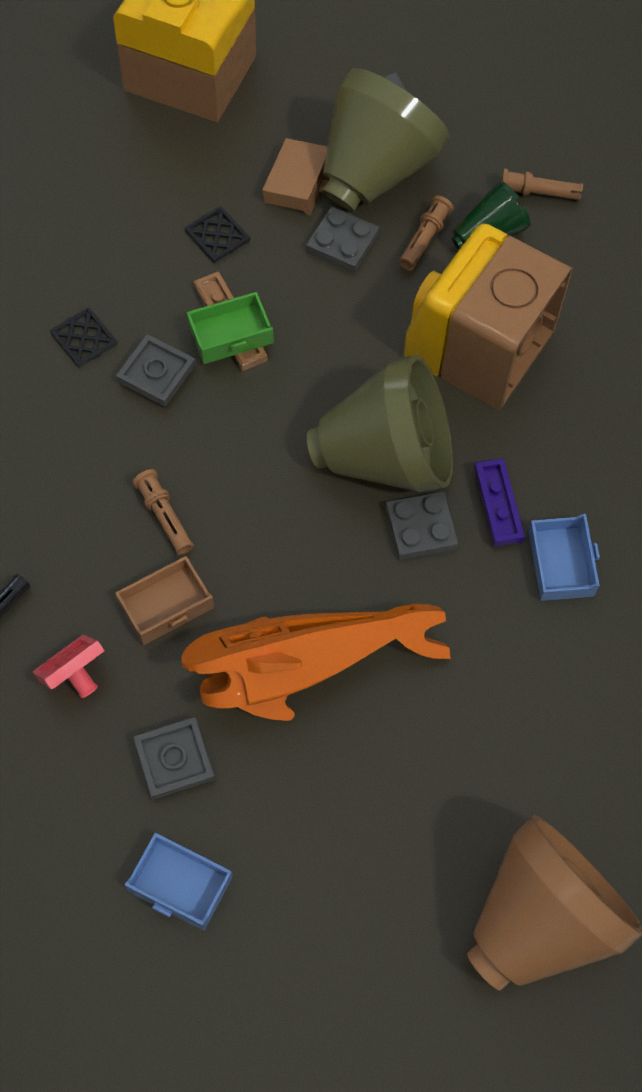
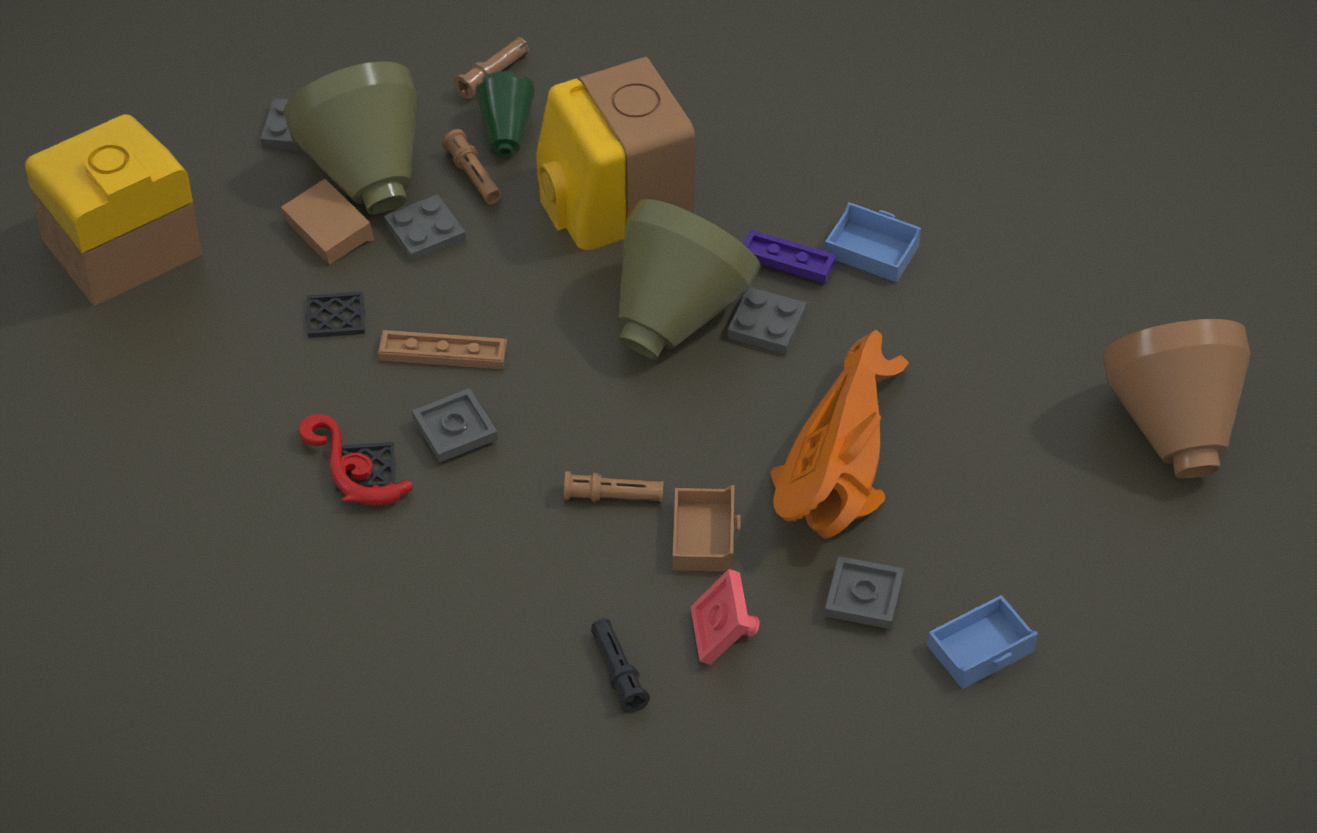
camera: 55 degrees left, 15 degrees down
(70, 319) = (357, 462): none -> red plant
(230, 327) = (460, 345): bright green container -> none

